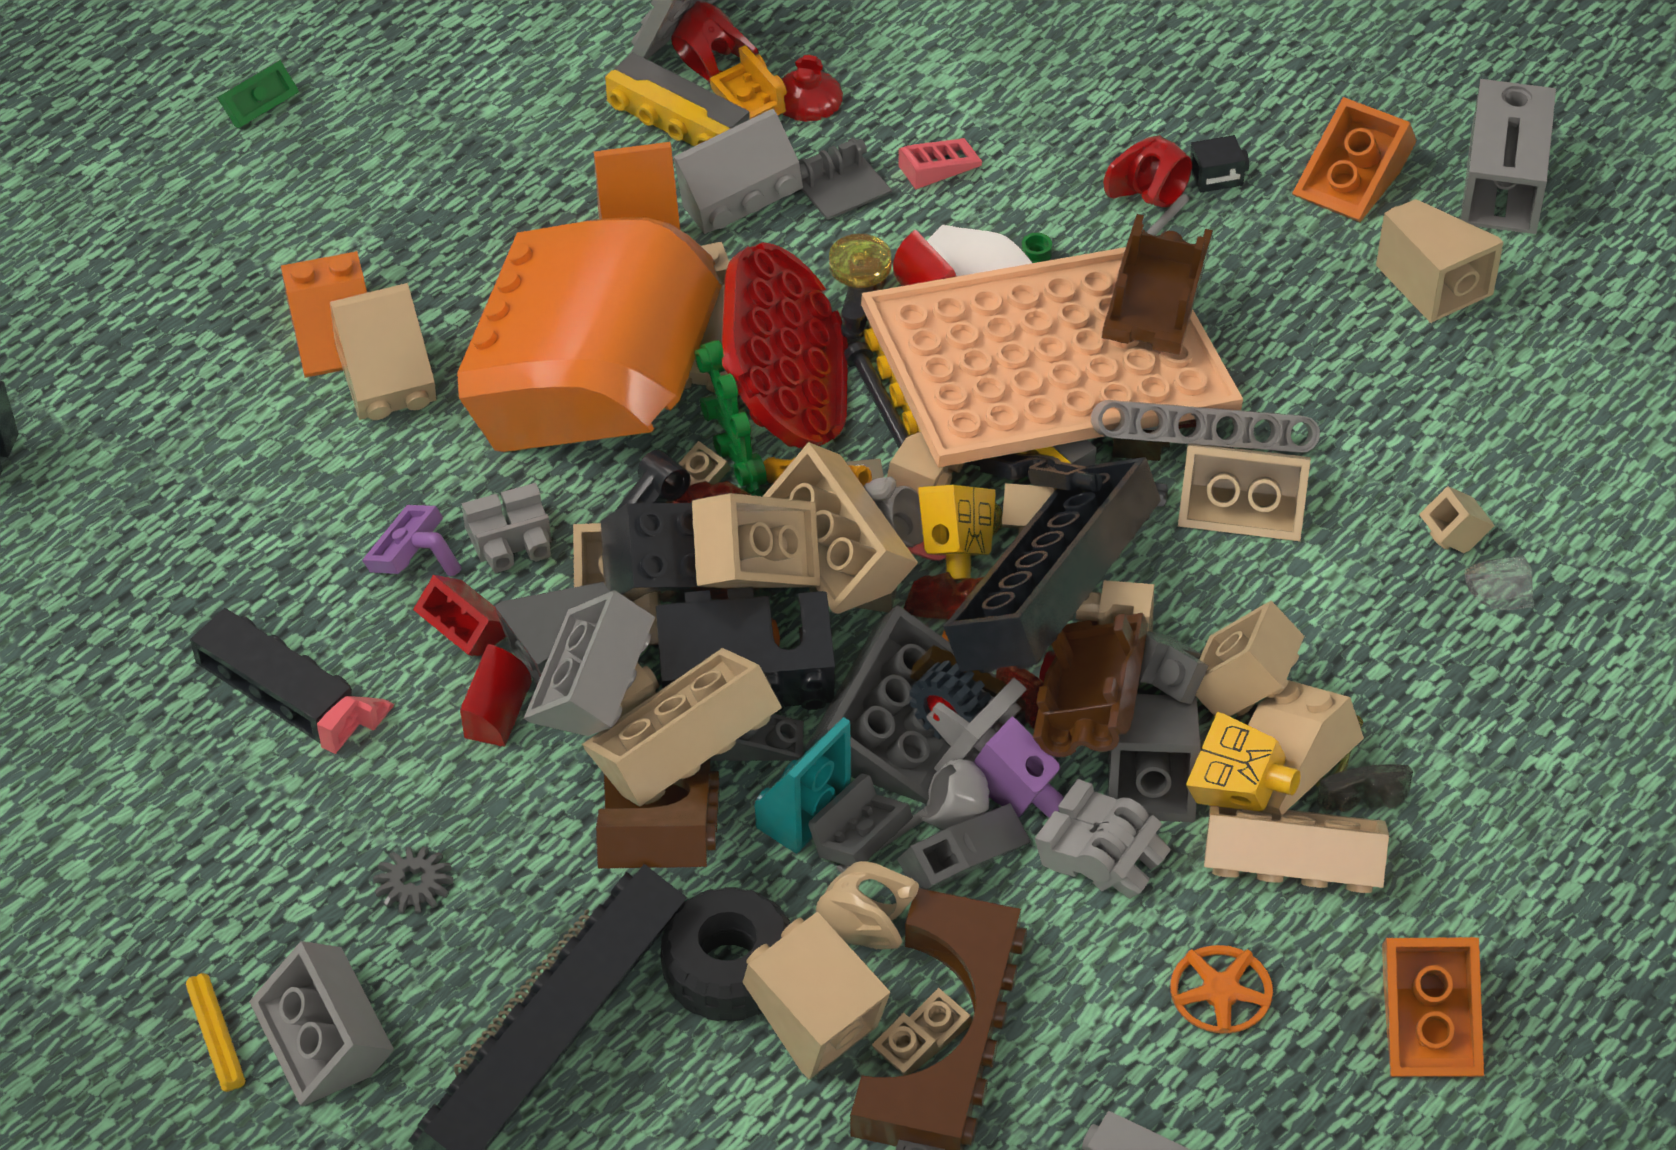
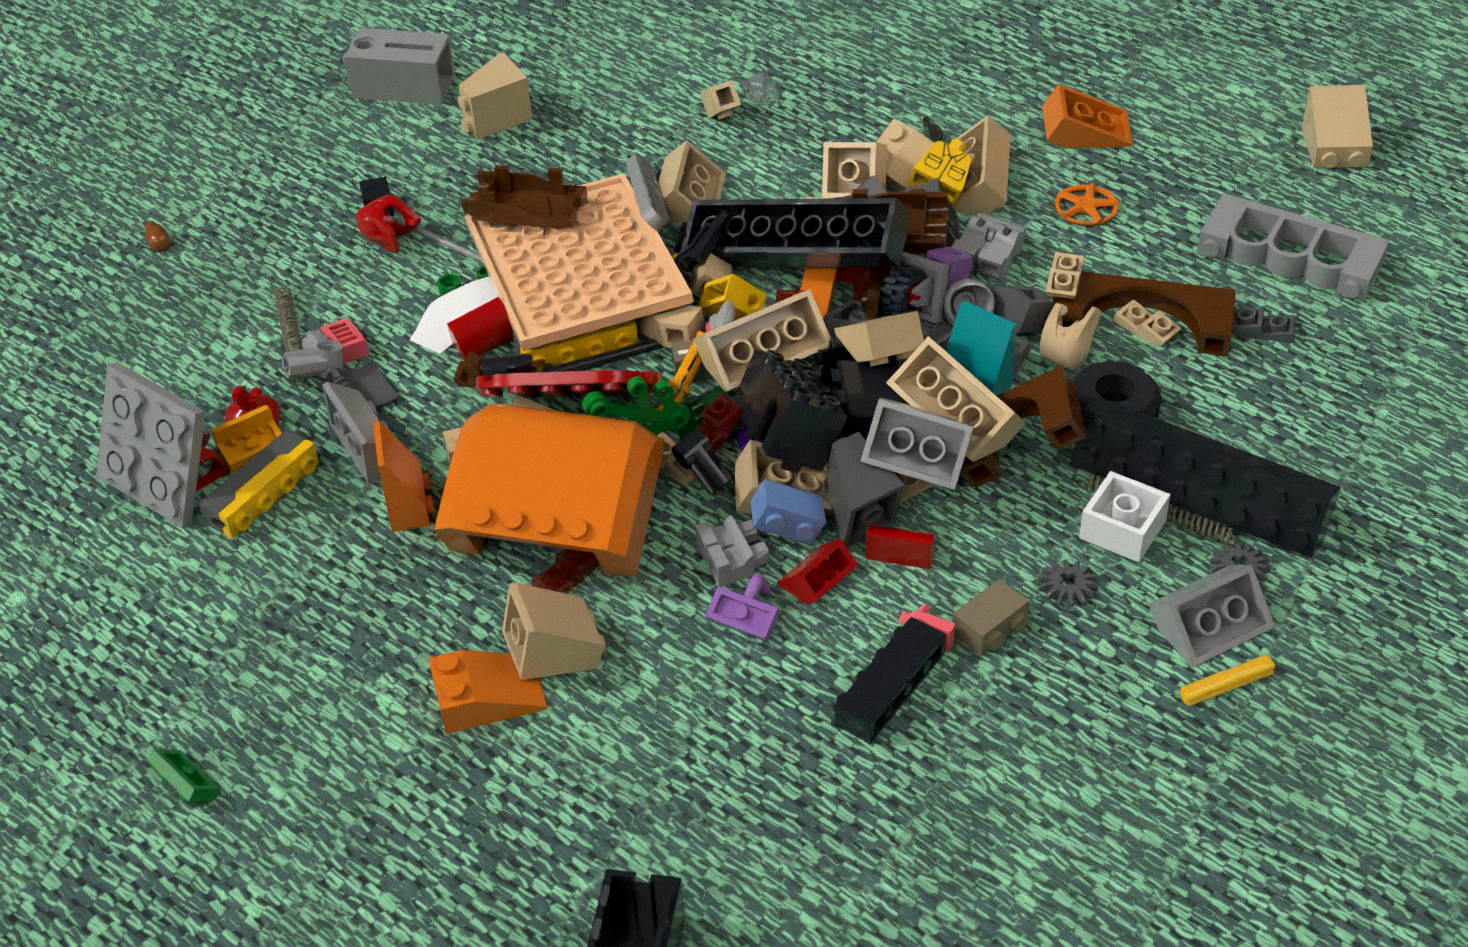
camera: 90 degrees left, 5 degrees down
(352, 781) = (991, 617): none -> dark tan brick
(414, 1095) = (1226, 558): none -> dark grey gear
(497, 936) = (1124, 516): none -> white brick
(545, 560) = (787, 512): none -> medium blue brick
(755, 542) = (810, 352): tan slope -> none
(801, 636) = (882, 338): none -> tan slope
(815, 993) = (1156, 340): tan slope -> none
(860, 260) = (469, 357): clear yellow piece -> none
(883, 134) = (315, 357): none -> light grey piece
(948, 107) = (282, 323): none -> dark tan piece
(980, 906) = (1065, 275): none -> tan slope
(1356, 160) = (383, 136): orange slope -> none

